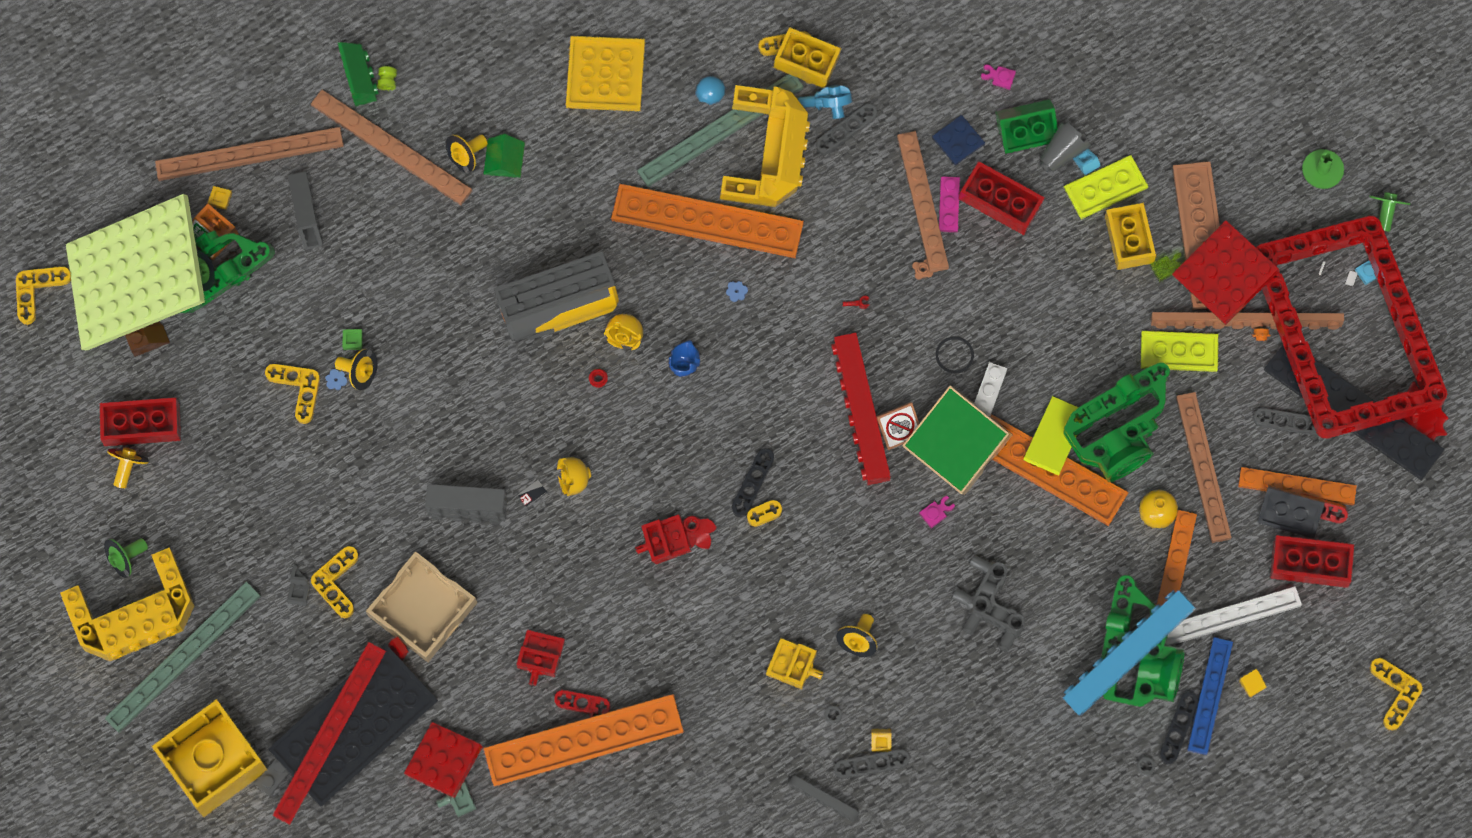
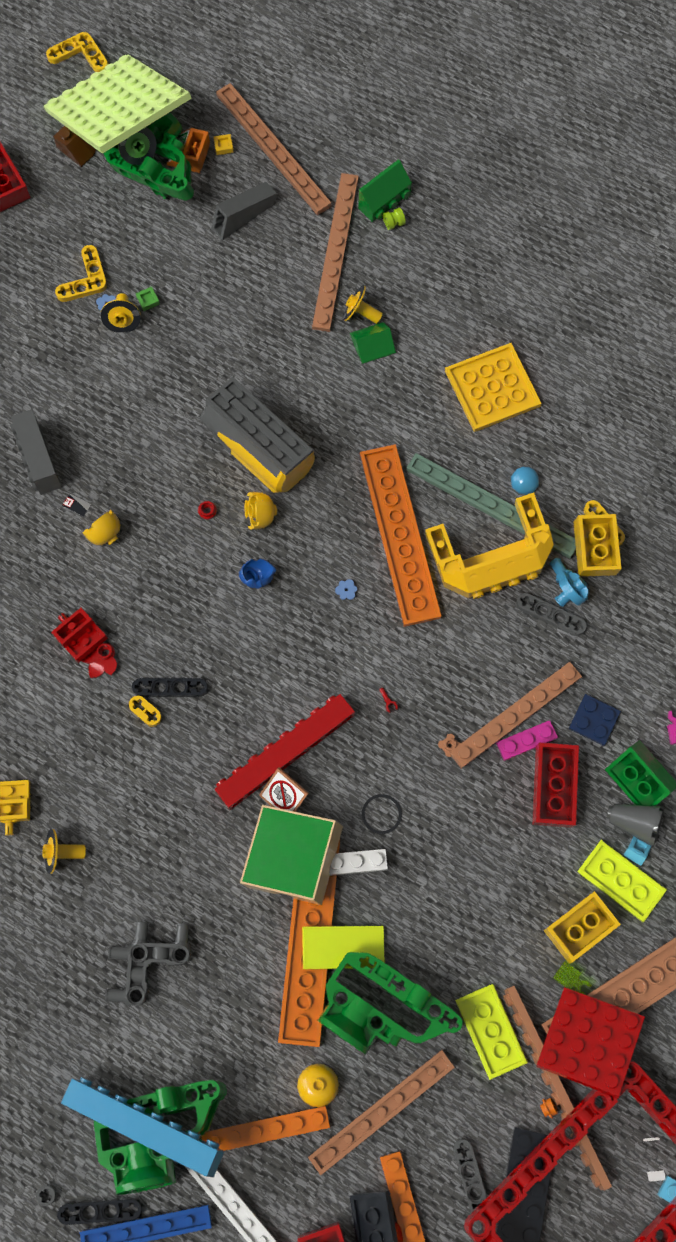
camera: 60 degrees right, 0 degrees up
(935, 513) = (215, 867): dark pink plate -> none

